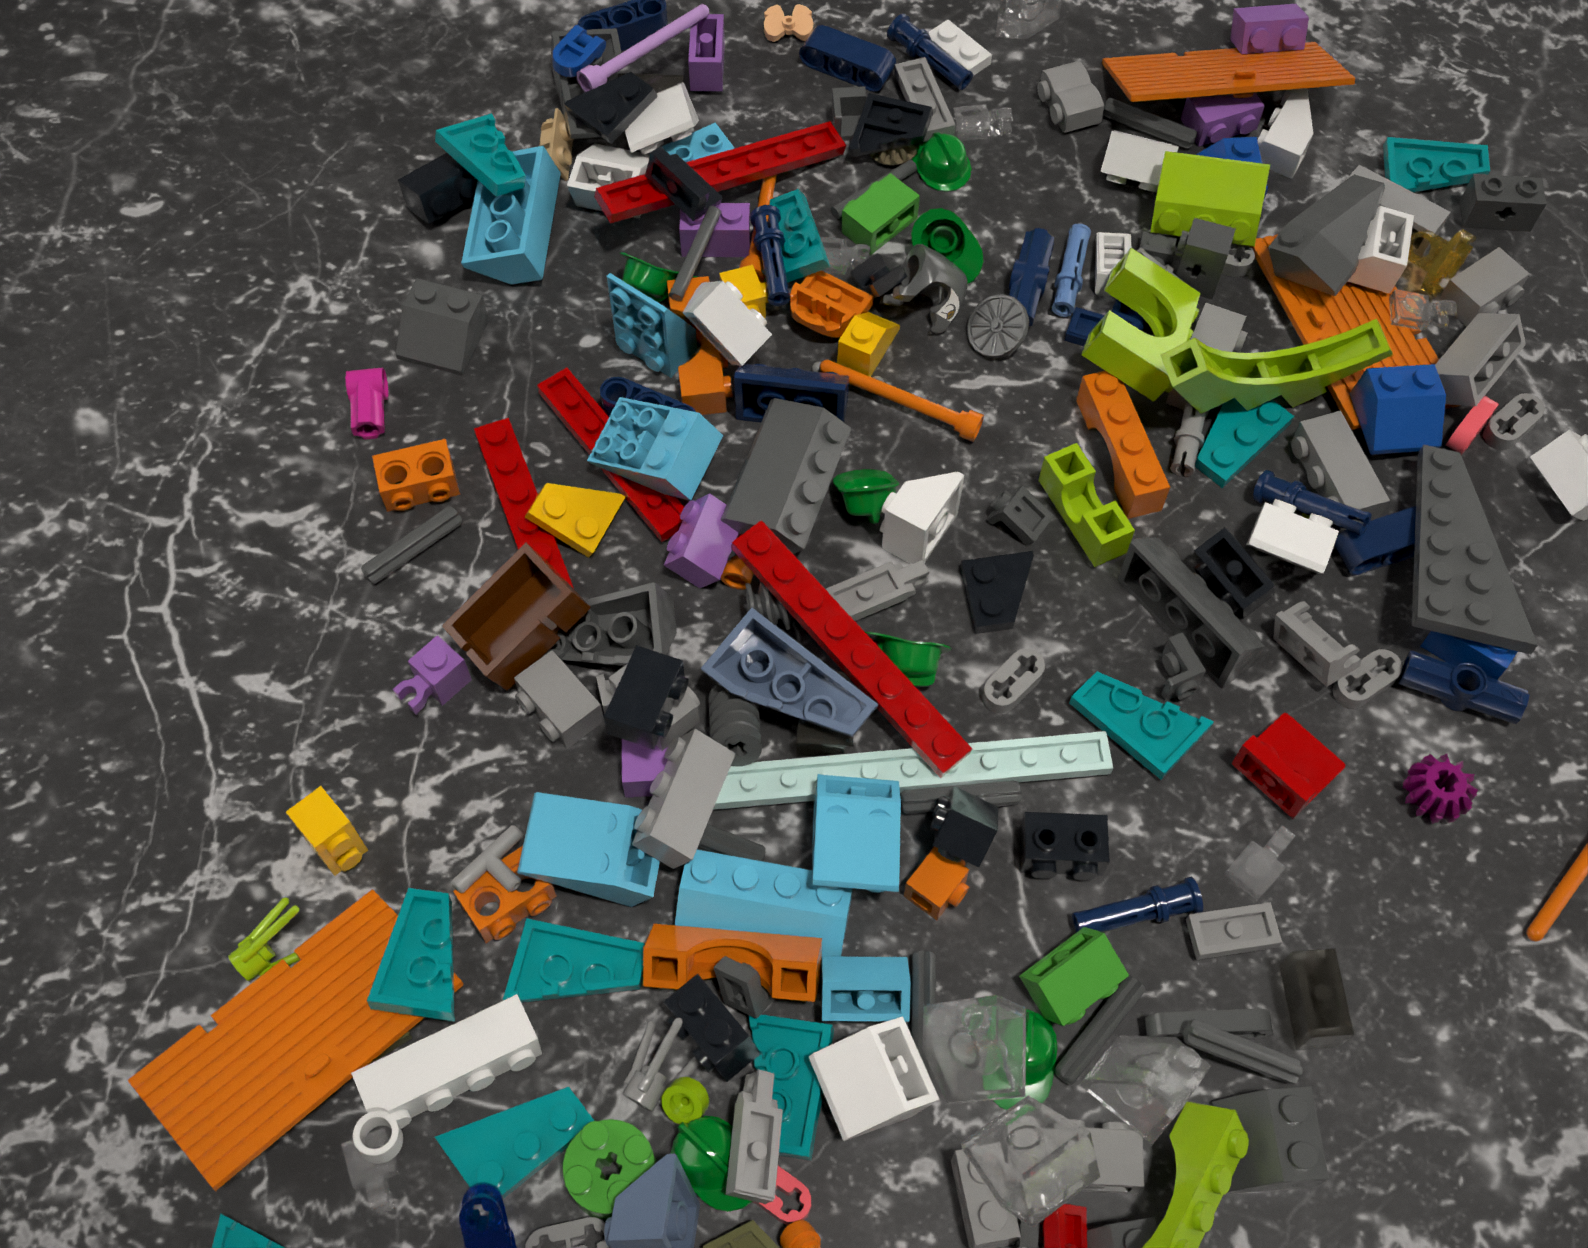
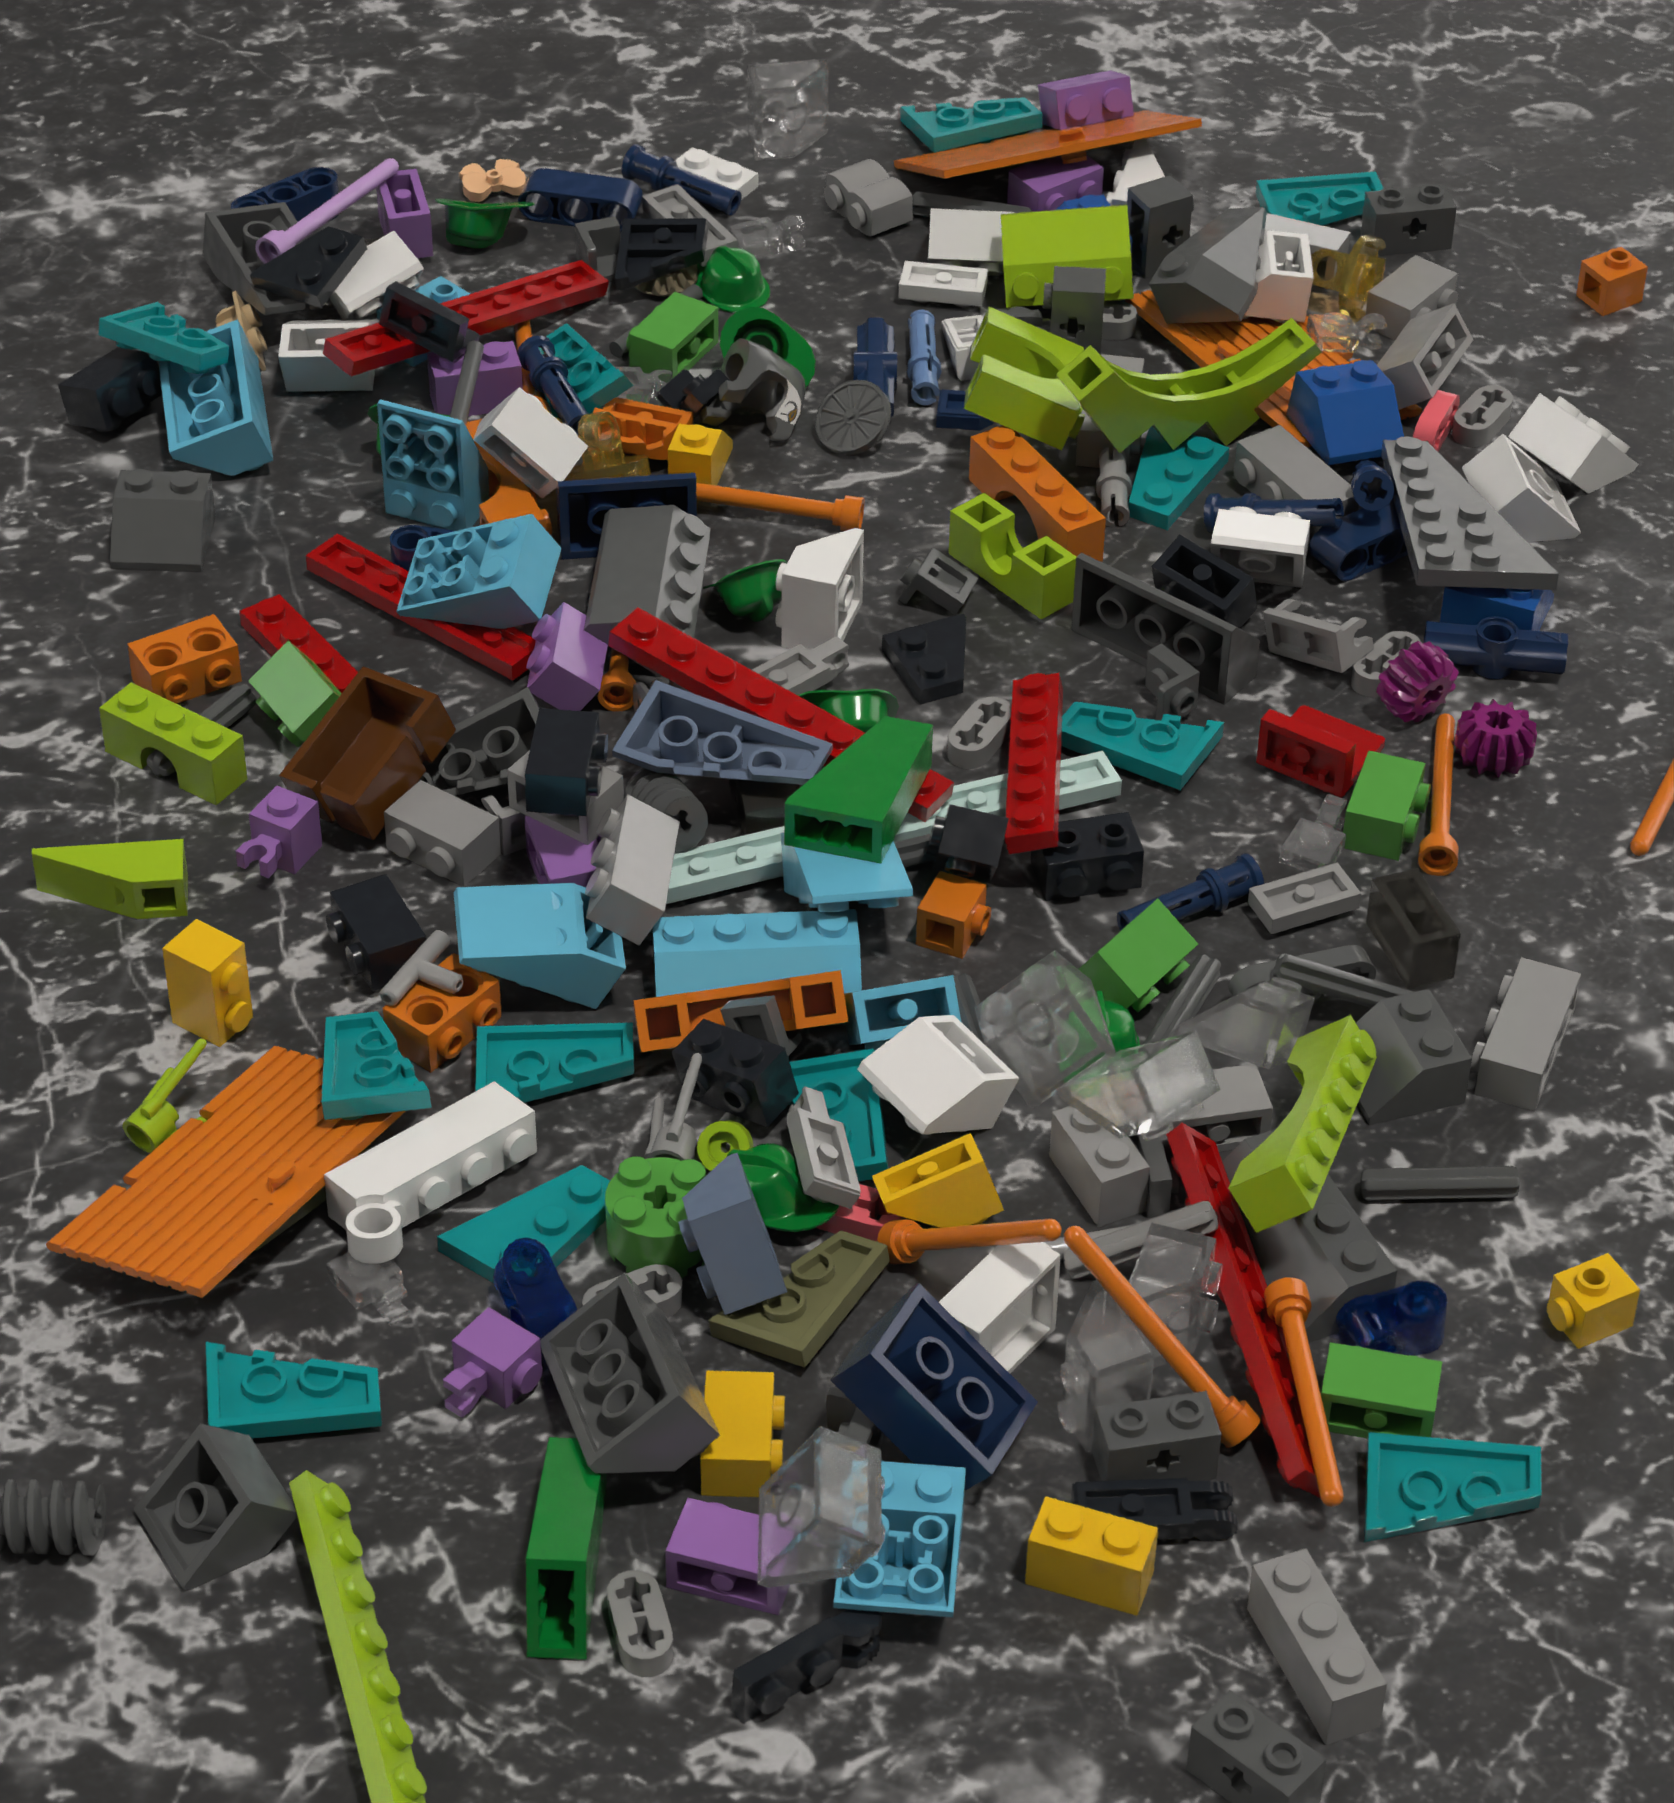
camera: 15 degrees left, 20 degrees down
(314, 693) = (122, 878): none -> lime slope
(367, 394) = (93, 602): dark pink piece -> none
(390, 566) = (203, 752): none -> lime arch
(476, 799) = (374, 929): none -> black brick
(488, 532) = (294, 692): none -> bright green brick
(575, 514) = (403, 657): yellow wing -> none
(576, 51) = (246, 224): blue plate -> none
(763, 65) = (476, 223): none -> green piece
(791, 339) = (605, 454): none -> clear yellow tile
(843, 1200) = (941, 1186): none -> yellow slope
(884, 774) = (863, 793): none -> green slope
(1043, 743) = (1034, 763): none -> red plate
(1107, 196) = (943, 283): none -> white plate
(1167, 34) = (958, 127): none -> teal wing
(1294, 175) = (1157, 221): none -> dark grey brick
(1327, 844) = (1385, 805): none -> bright green brick
(1360, 901) = (1438, 849): none -> orange piece
(1385, 1137) = (1525, 1033): none -> light grey brick
(1387, 717) = (1417, 681): none -> magenta gear
(1401, 497) = (1378, 491): none -> dark blue pin
(1525, 520) = (1521, 492): none -> white slope

